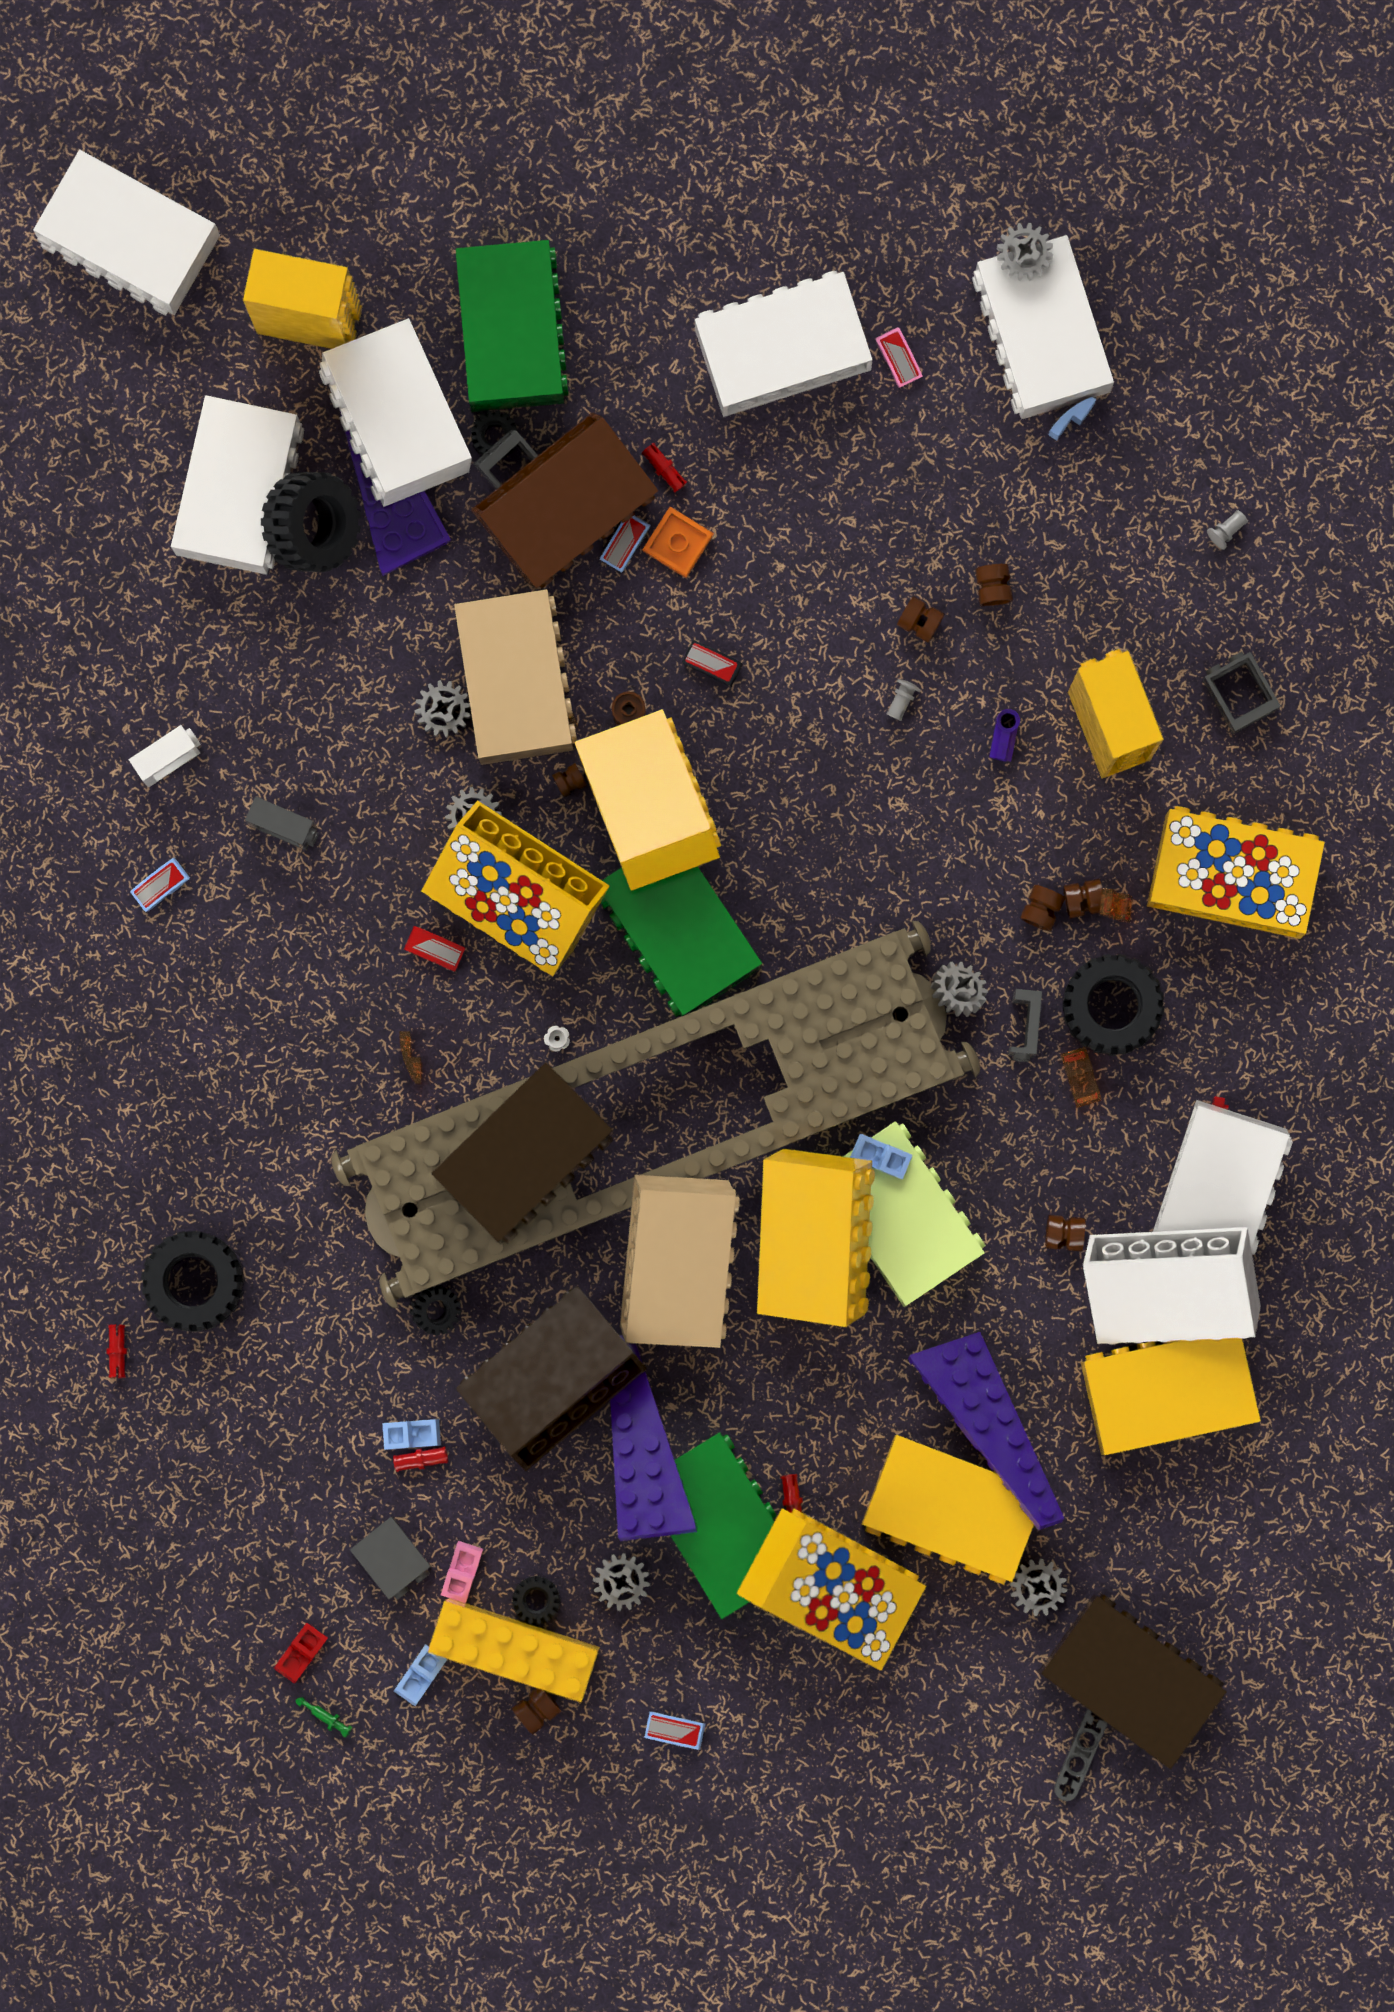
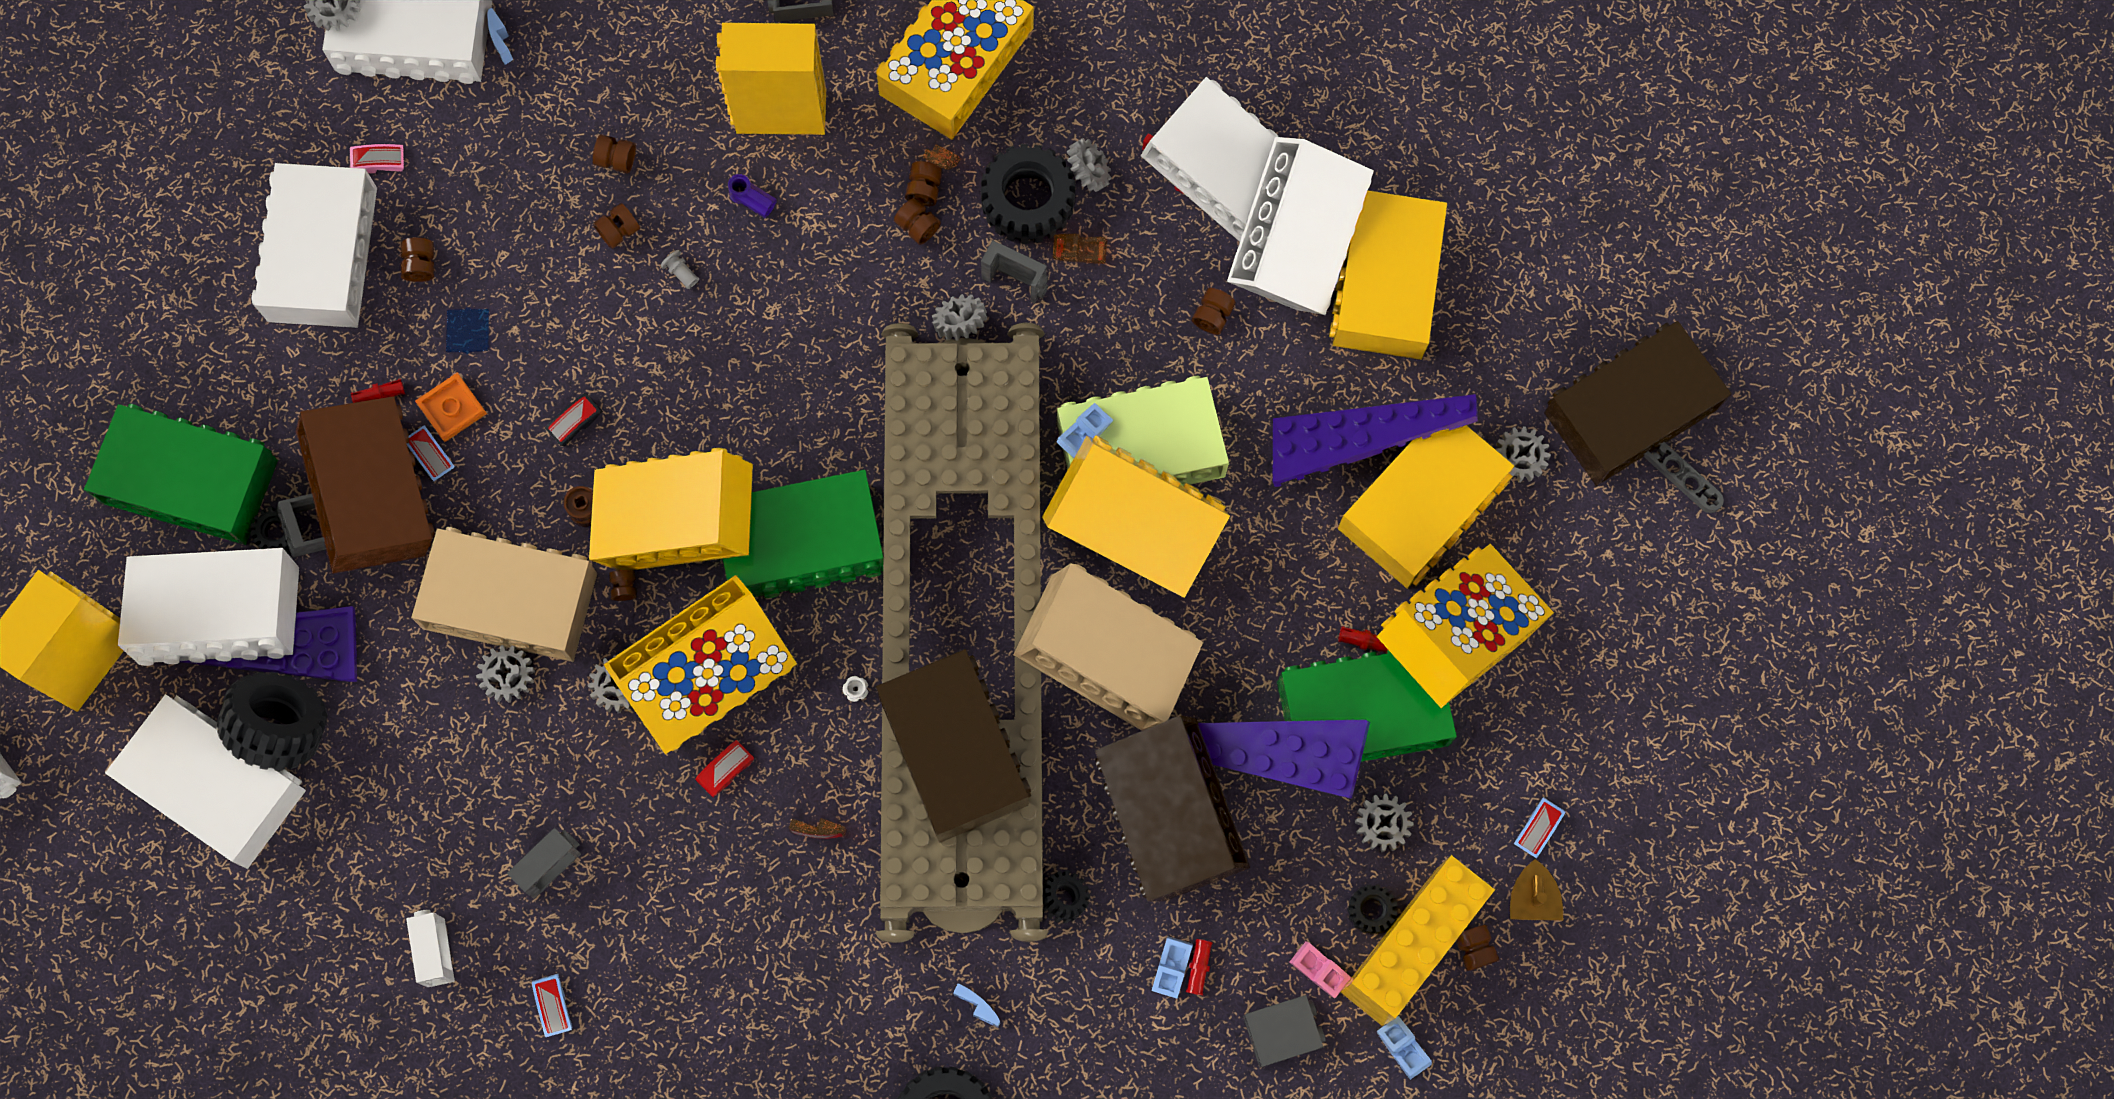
camera: 75 degrees left, 10 degrees down
(304, 1276) = (983, 1010): none -> light blue slope
(610, 1749) = (1536, 895): none -> pearl gold shield
(761, 522) = (467, 330): none -> clear blue piece
(809, 445) = (417, 259): none -> reddish brown wheel
(1167, 1053) = (1089, 165): none -> light grey gear

